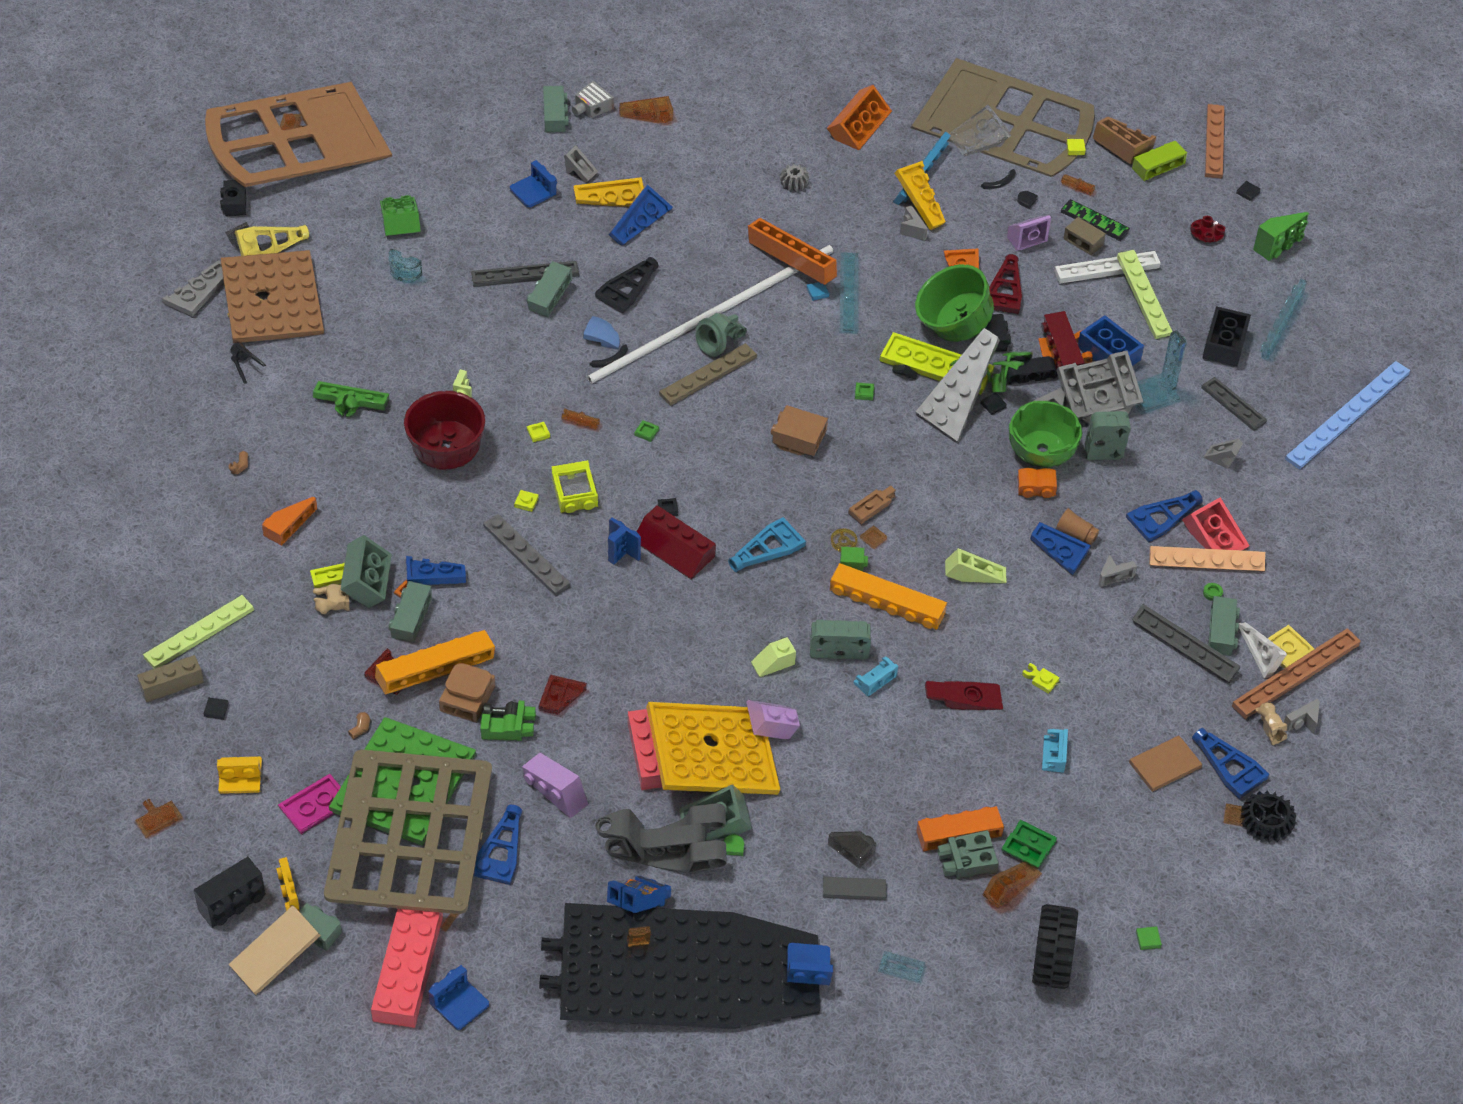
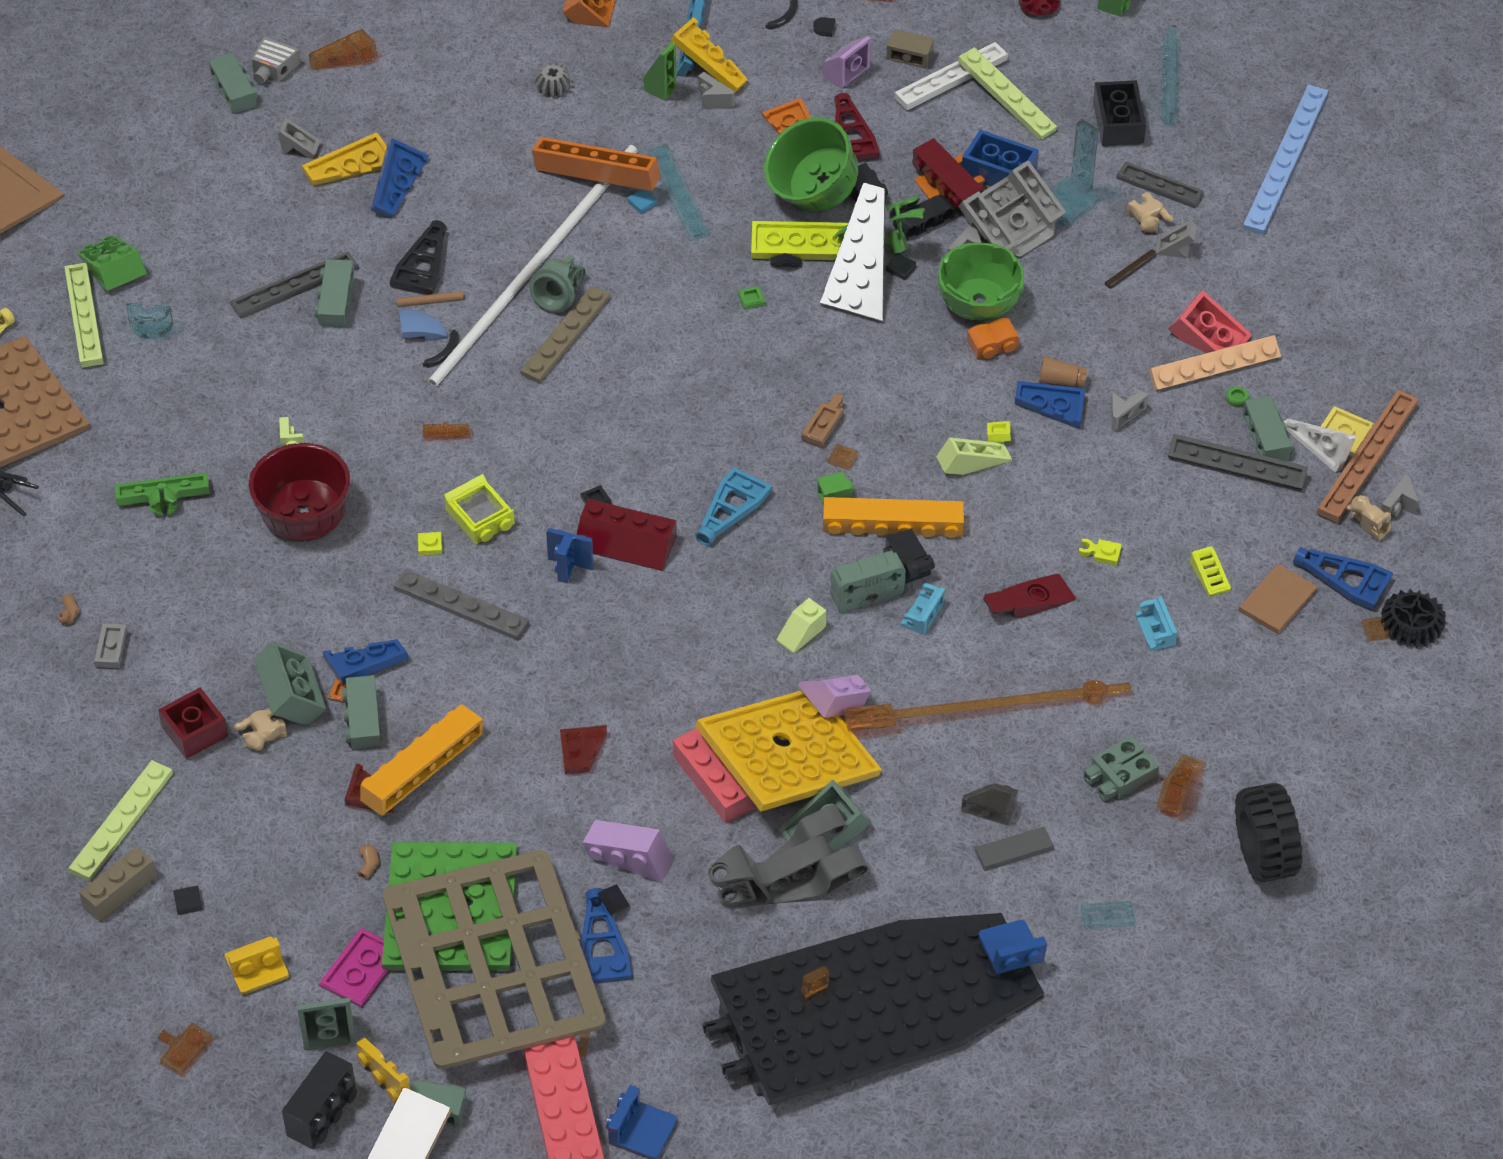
camera: 20 degrees left, 0 degrees up
(255, 500) = (110, 645): none -> light grey plate
(263, 836) = (326, 1023): none -> sand green slope
(283, 577) = (193, 722): none -> dark red brick
(286, 522) = (161, 658): orange slope -> none
(327, 575) = (244, 703): neon yellow plate -> none
(360, 248) = (83, 315): none -> yellowish green plate
(467, 692) = (475, 781): medium nougat brick -> none
(511, 725) = (543, 800): bright green hips -> none
(524, 818) = (613, 899): none -> black tile
(535, 188) = (257, 180): blue bracket -> none
(538, 432) = (403, 461): neon yellow tile -> none
(619, 315) = (427, 299): none -> medium nougat bar
(638, 894) = (786, 937): blue hips -> none
(646, 430) = (527, 420): bright green tile -> none
(734, 845) = (864, 845): bright green tile -> none
(799, 431) = (704, 364): medium nougat brick -> none
(802, 748) = (884, 716): none -> clear orange bar
(837, 546) = (807, 468): clear yellow piece -> none
(877, 197) = (661, 77): none -> bright green slope
(884, 631) = (911, 554): none -> black hinge
(936, 831) = (1076, 754): orange brick -> none
(1005, 557) = (999, 431): none -> neon yellow plate
(1029, 844) = (1177, 734): green slope -> none
(1105, 224) = (887, 23): tile -> none
(1107, 435) = (1049, 261): sand green axle -> none
(1120, 711) = (1204, 558): none -> neon yellow slope
(1147, 526) = (1135, 349): blue plate -> none
(1148, 938) = (1351, 791): bright green tile -> none
(1177, 462) = (1130, 268): none -> dark brown bar
(1212, 422) = (1148, 213): none -> tan animal

